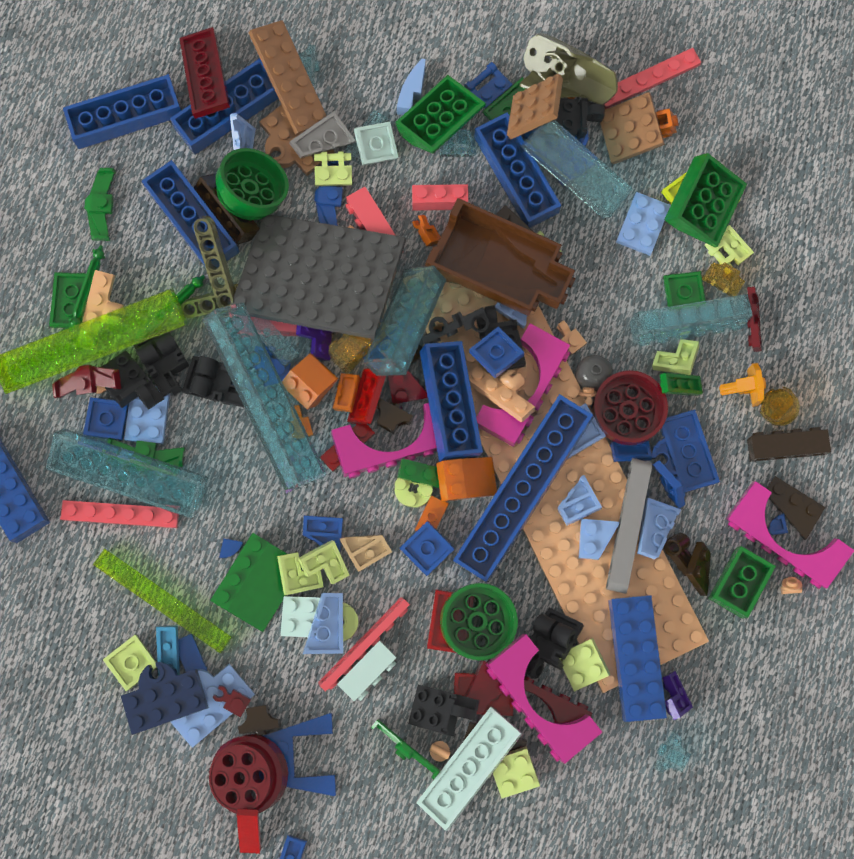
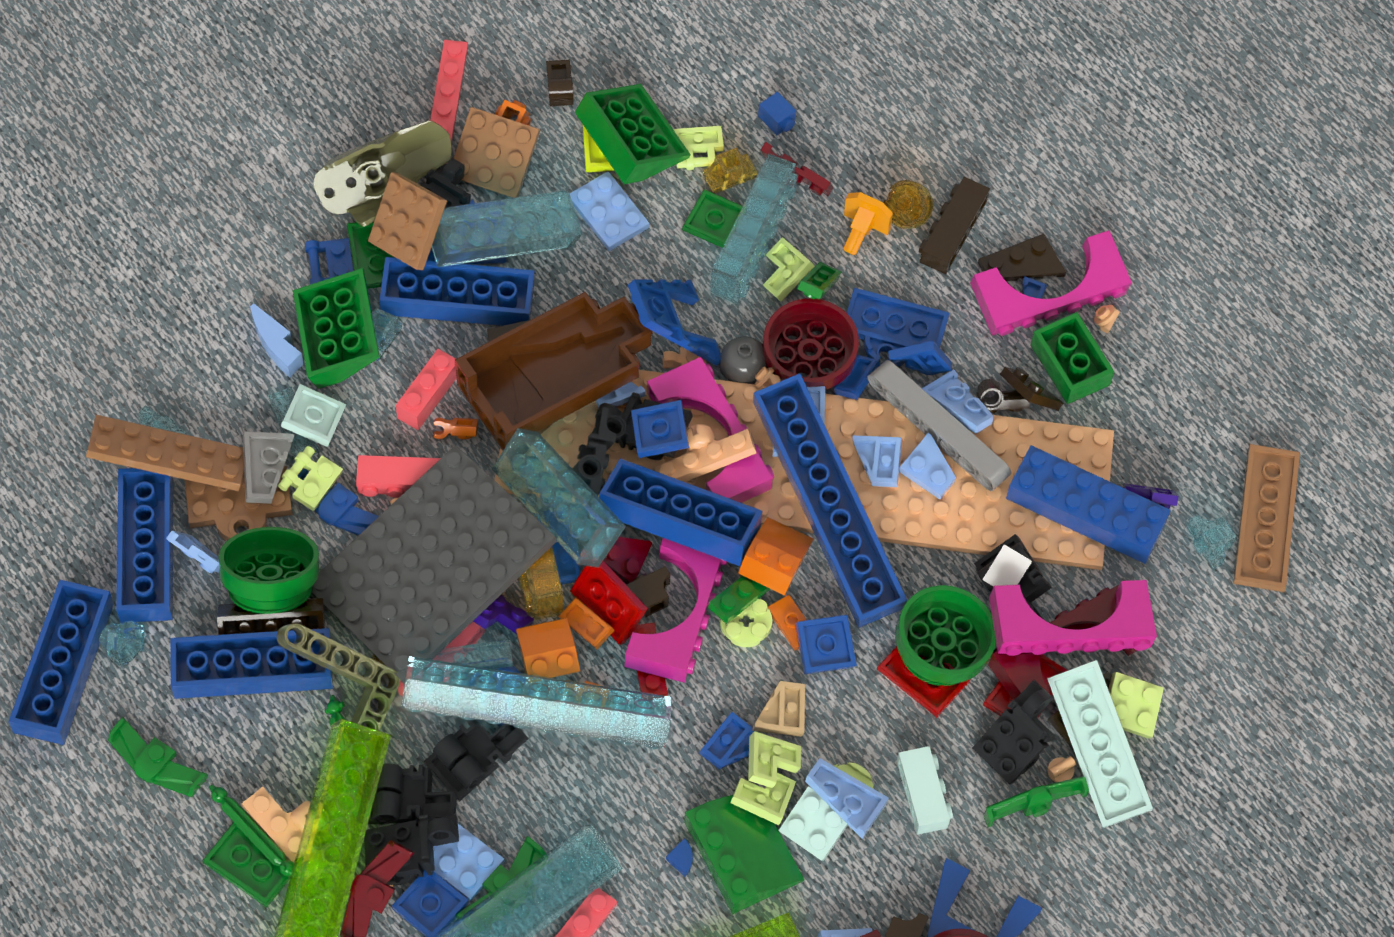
camera: 60 degrees left, 15 degrees down
(156, 136) = (120, 643): none -> clear light blue piece
(204, 73) = (88, 539): dark red plate -> none
(359, 649) = (889, 774): coral plate -> none
(550, 634) = (1007, 568): none -> white sticker
(577, 300) = (659, 314): none -> blue wing
(584, 665) = (1062, 563): yellowish green plate -> none
(712, 135) = (559, 83): none -> dark brown plate
(714, 783) = (1266, 518): none -> medium nougat plate
(789, 281) = (777, 113): none -> blue brick

